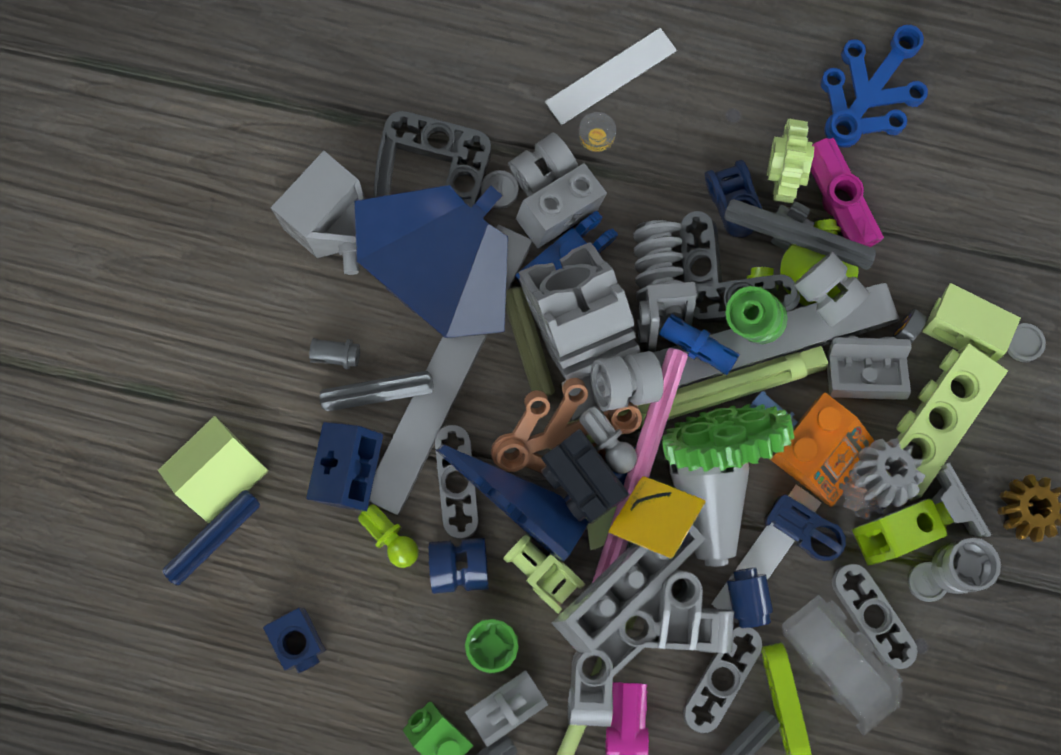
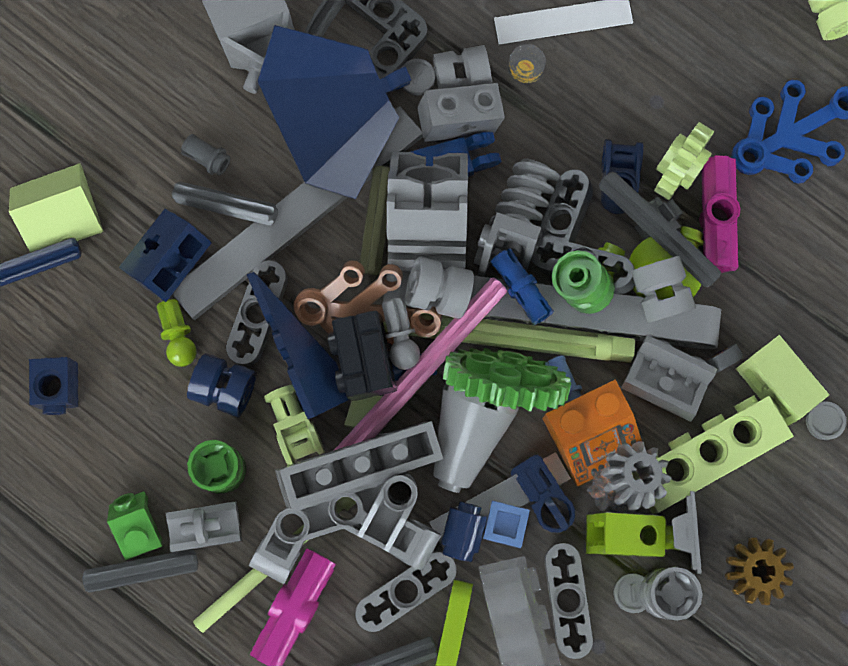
camera: 30 degrees right, 0 degrees up
(657, 517) = (408, 419): yellow sticker -> none
(785, 572) = (506, 524): none -> medium blue plate

